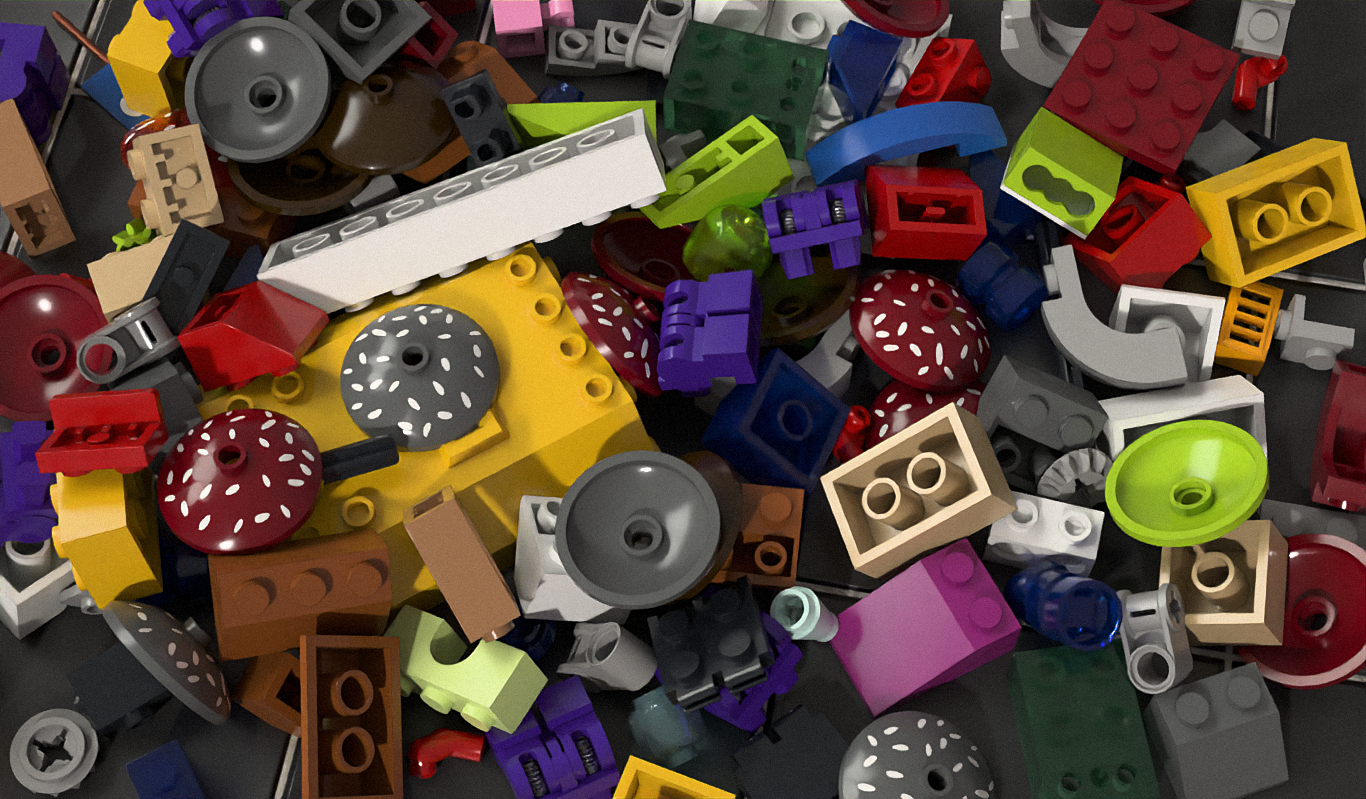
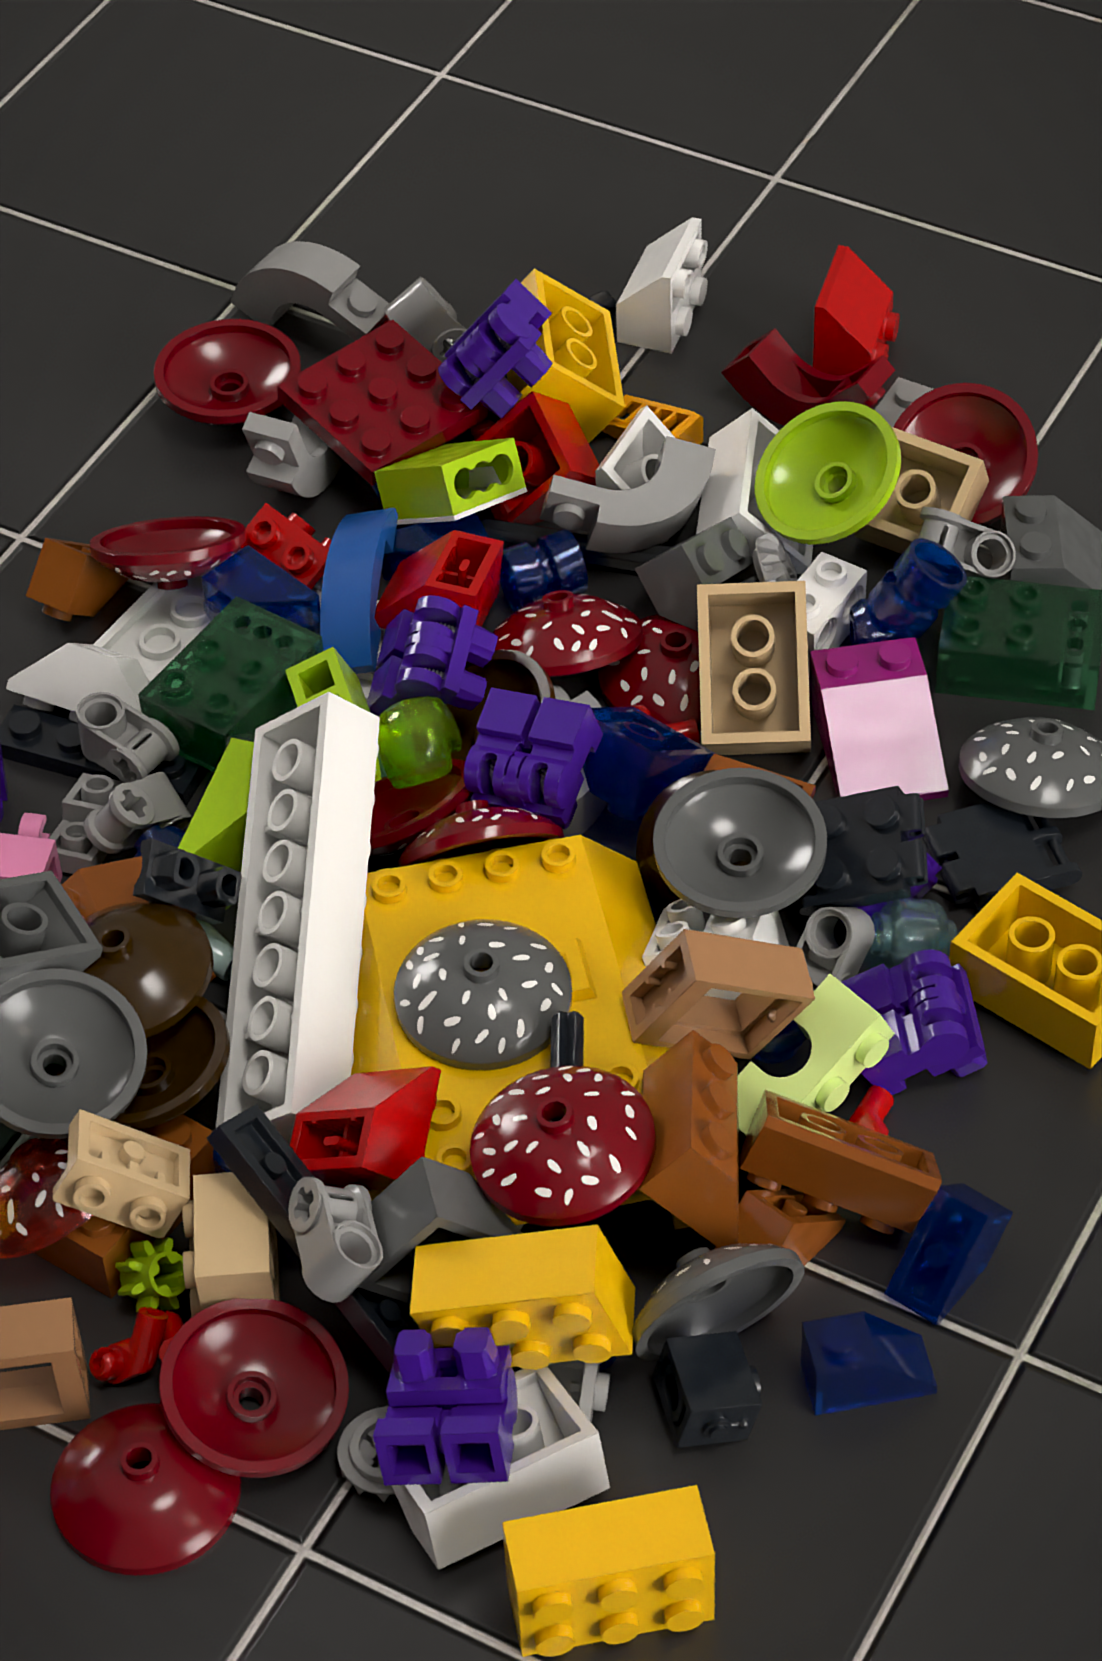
camera: 70 degrees left, 15 degrees down
(49, 729) = (753, 1454): light grey gear -> none
(74, 257) = (132, 1355): none -> red arm
(103, 432) = (475, 1228): red bracket -> none
(603, 76) = (134, 810): none -> light grey piece
(804, 615) = (840, 779): light aqua cone -> none
(1203, 142) = (494, 345): none -> dark purple hips
(1281, 92) = (426, 317): none -> light grey piece
(1310, 341) = (692, 386): light grey bracket -> none

